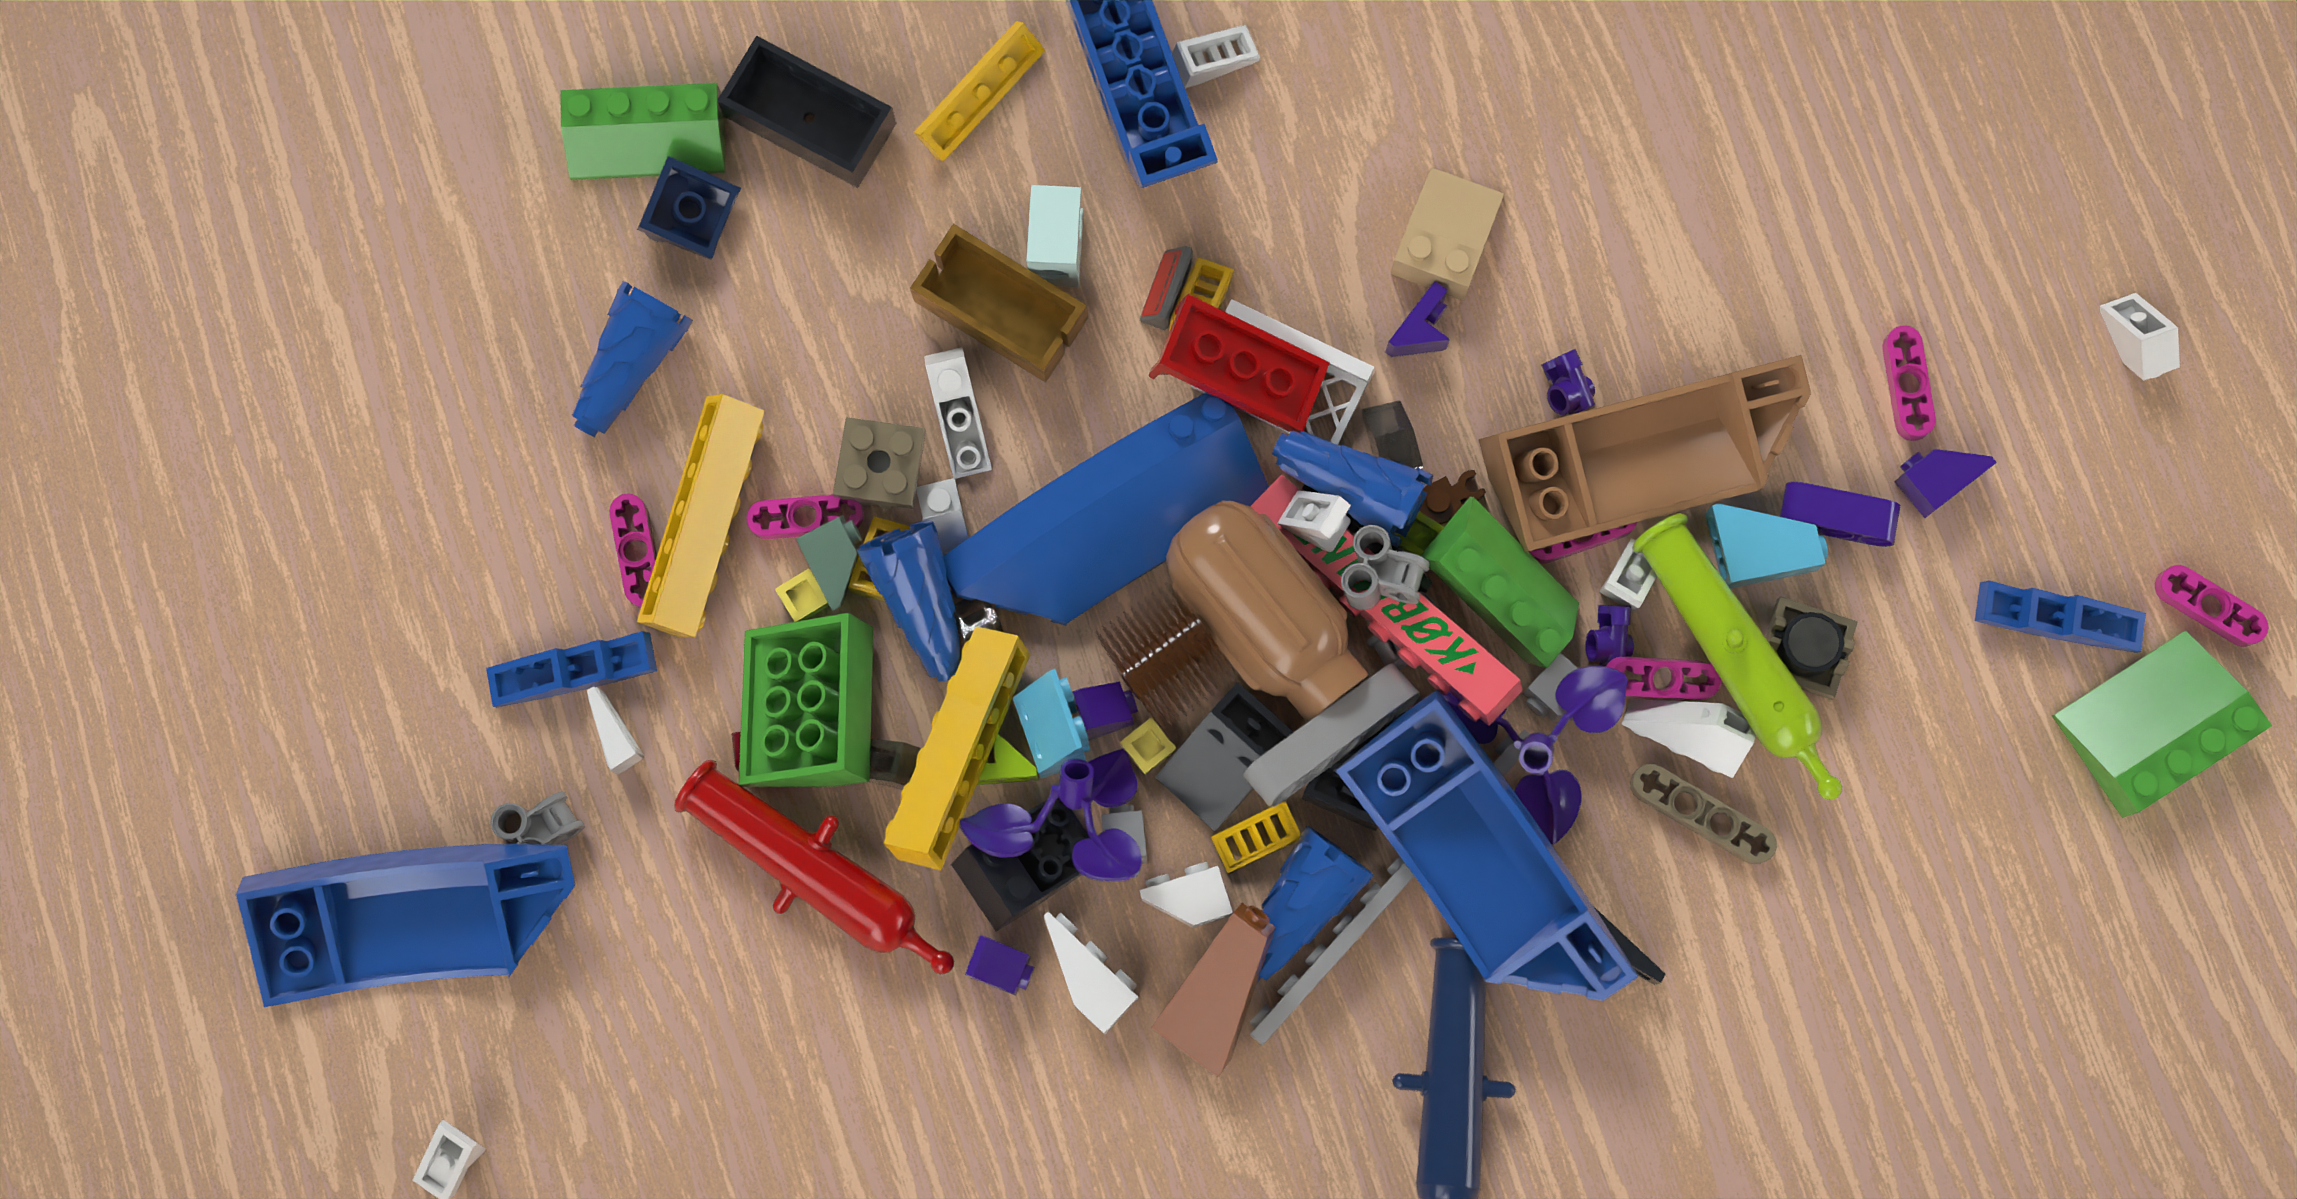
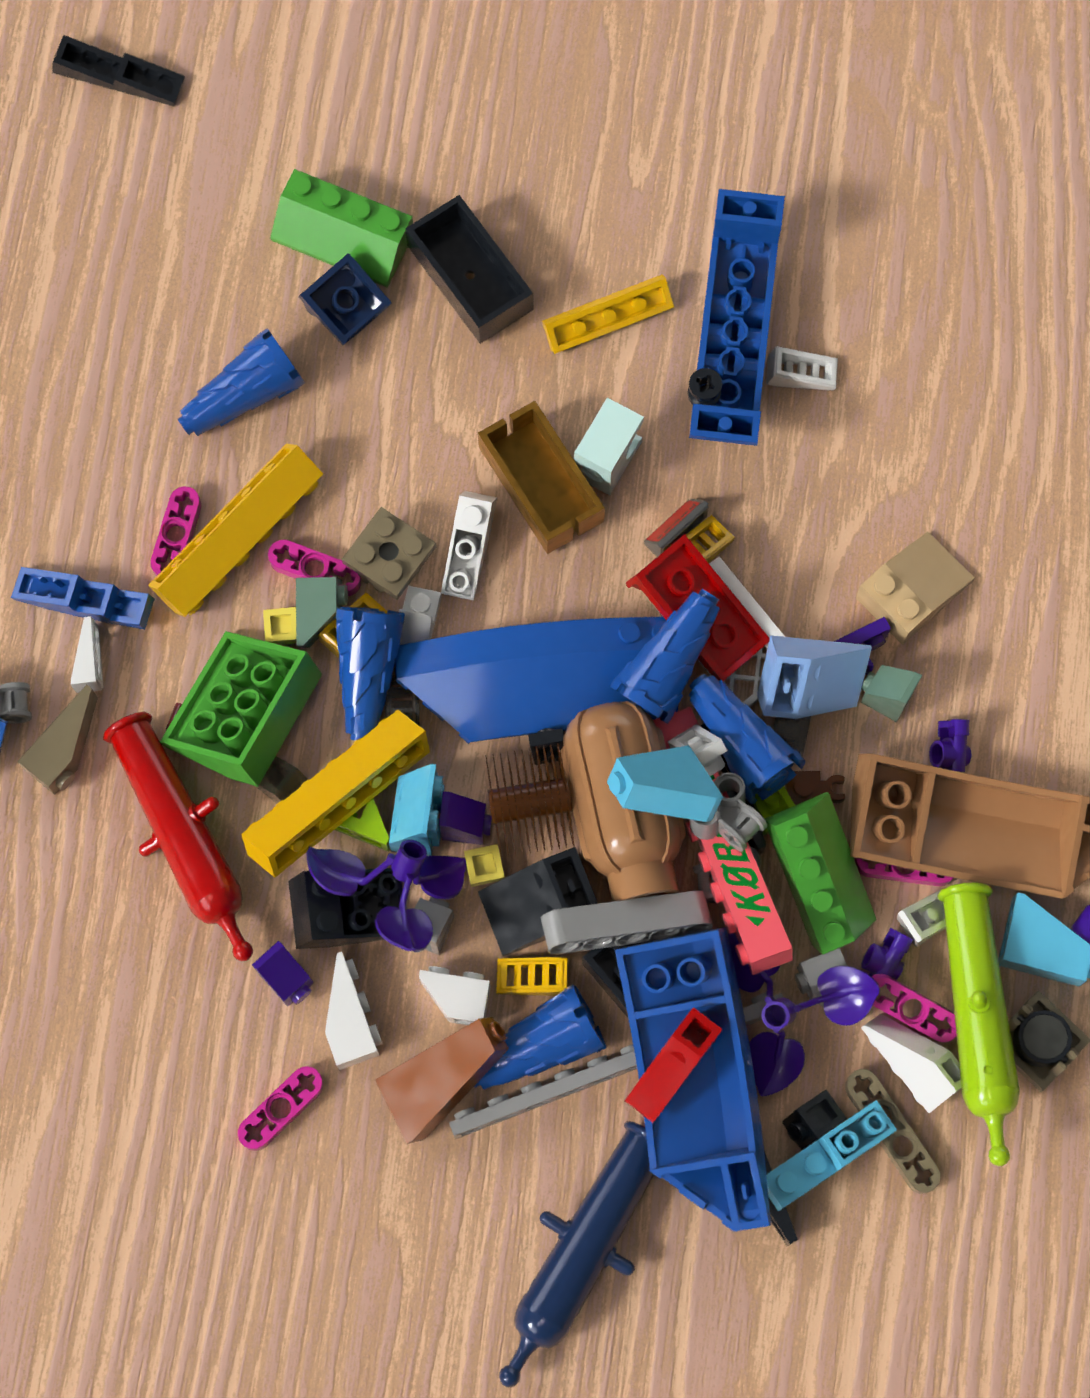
camera: 25 degrees right, 5 degrees down
(308, 71) = (124, 74): none -> black slope
(632, 846) = (60, 747): none -> dark tan slope
(1045, 1132) = (254, 1119): none -> dark pink beam
(1129, 134) = (704, 394): none -> black wheel
(1149, 581) = (545, 738): none -> black bracket
(1237, 441) = (667, 660): none -> blue cone
(1308, 573) = (665, 784): none -> medium azure slope
(1391, 382) = (811, 676): none -> light blue slope
(1457, 860) = (673, 1065): none -> red slope
(1478, 356) = (889, 690): none -> sand green slope
(1619, 842) = (813, 1119): none -> black bracket
(1654, 871) = (828, 1155): none -> medium azure slope

